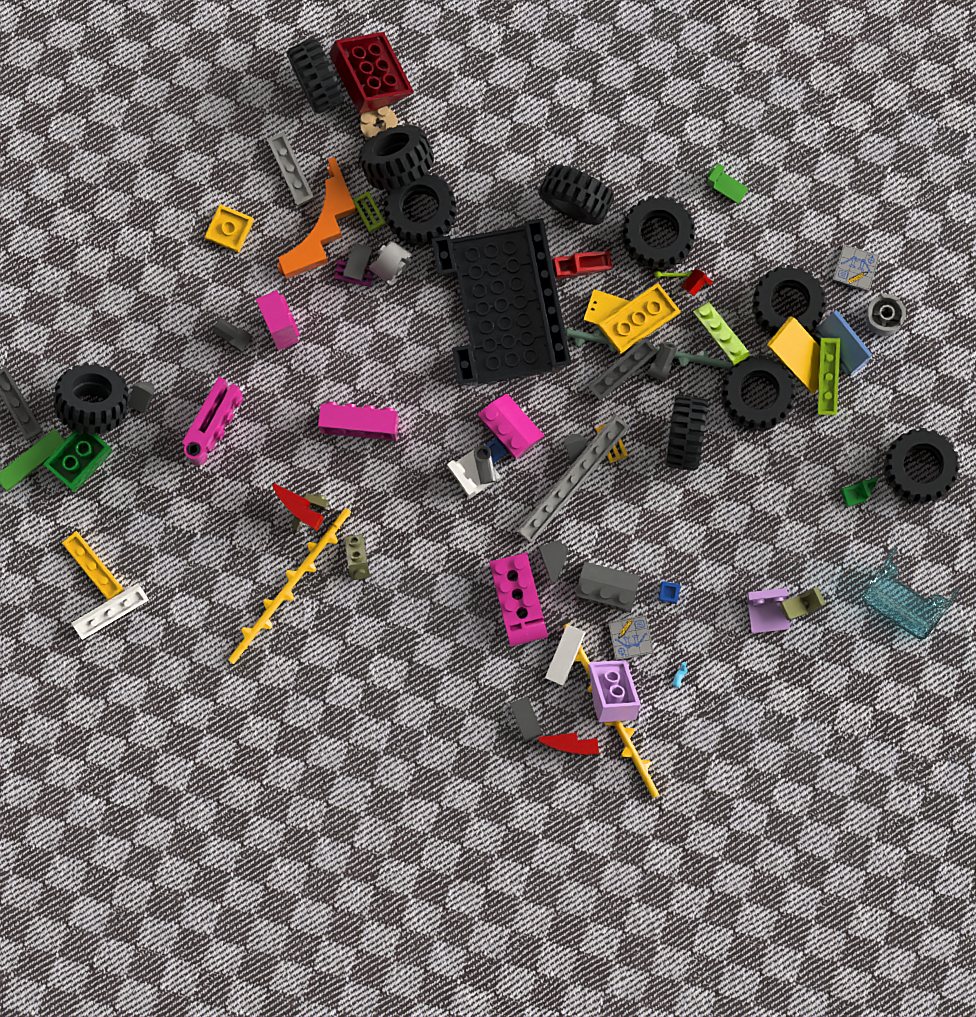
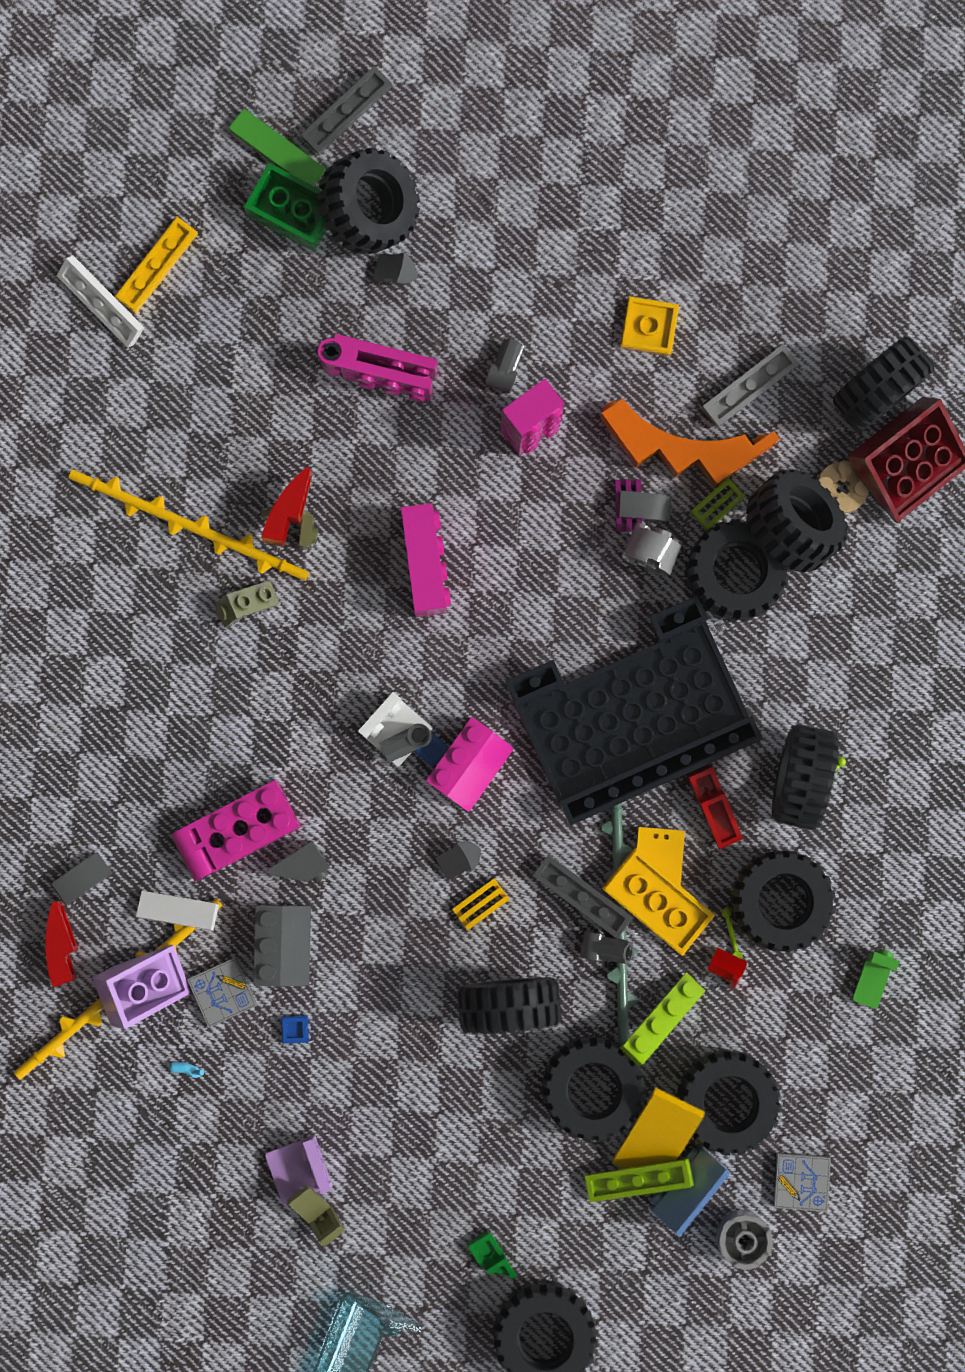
camera: 65 degrees right, 5 degrees up
(573, 478) = (417, 864): light grey tile -> none

